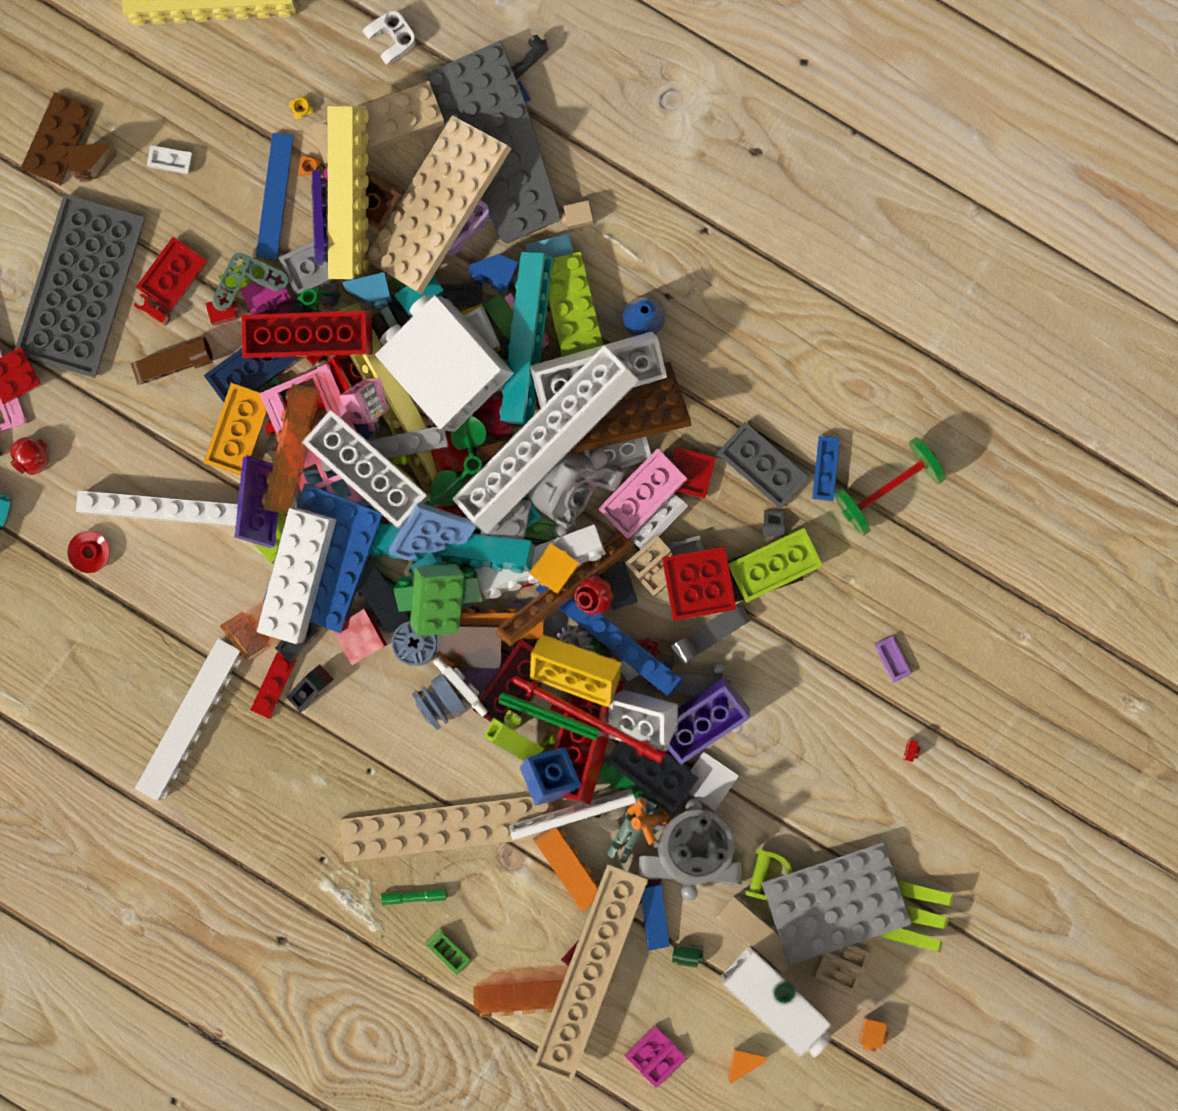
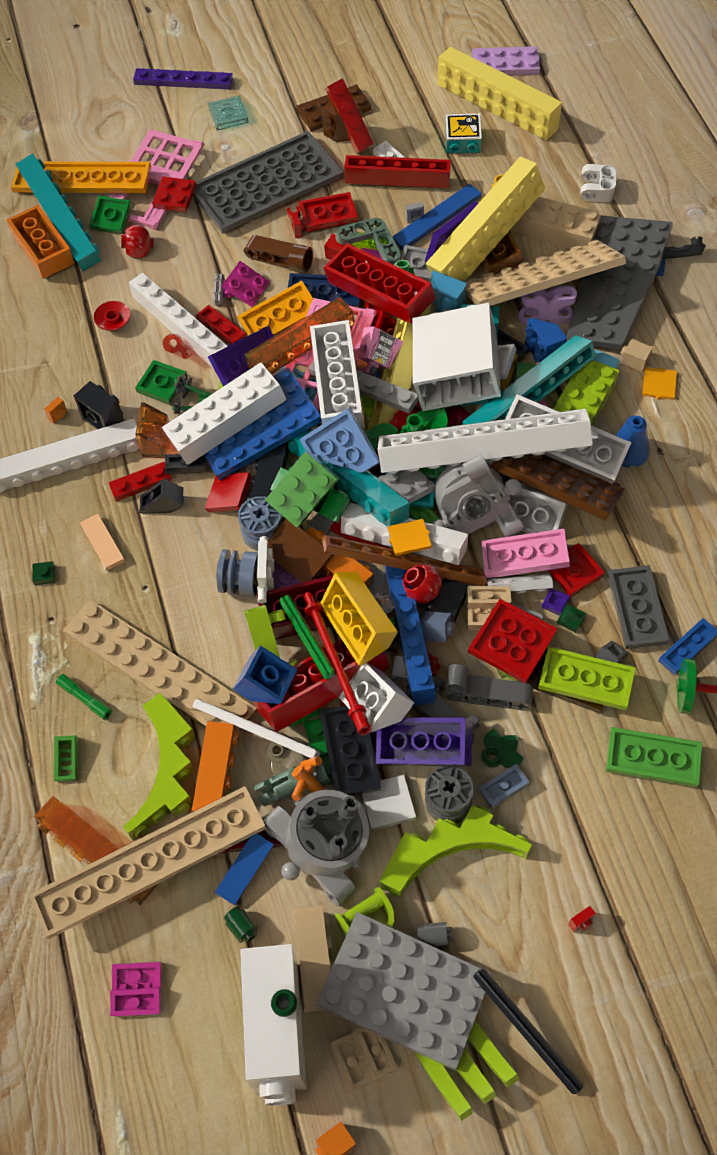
camera: 45 degrees right, 25 degrees down
(102, 158) = (346, 107): none -> red arch
(139, 683) = (56, 410): none -> orange plate
(151, 440) = (218, 289): none -> light grey axle
(174, 419) = (245, 284): none -> dark pink hinge
(176, 534) = (186, 353): none -> clear red plate
(180, 654) = (98, 406): none -> black brick
(192, 479) = (220, 325): none -> red tile
(197, 177) = (397, 171): none -> red brick
(198, 580) = (159, 382): none -> green plate
(215, 76) = (463, 133): none -> piece
(253, 211) = (414, 211): none -> light grey tile
(254, 565) = (185, 386): none -> plant
(278, 829) = (43, 573): none -> dark green plate
(297, 764) = (102, 542): none -> light nougat tile
(550, 913) = (173, 767): none -> lime arch
(616, 225) = (659, 383): none -> light orange piece
(630, 617) = (437, 626): none -> sand blue brick
(697, 512) = (555, 601): none -> dark purple tile
(720, 517) = (571, 618): none -> dark green tile
(743, 1063) = (199, 1062): orange slope -> none
(755, 668) = (502, 748): none -> dark green plate
(756, 753) = (445, 804): none -> dark grey wheel
(762, 804) = (446, 839): none -> lime arch
(780, 699) = (503, 786): none -> sand blue plate
(822, 847) = (435, 934): none -> dark grey brick
(867, 584) = (654, 757): none -> bright green plate
(892, 659) = (627, 834): medium lavender tile -> none
(935, 858) = (528, 1031): none -> black axle

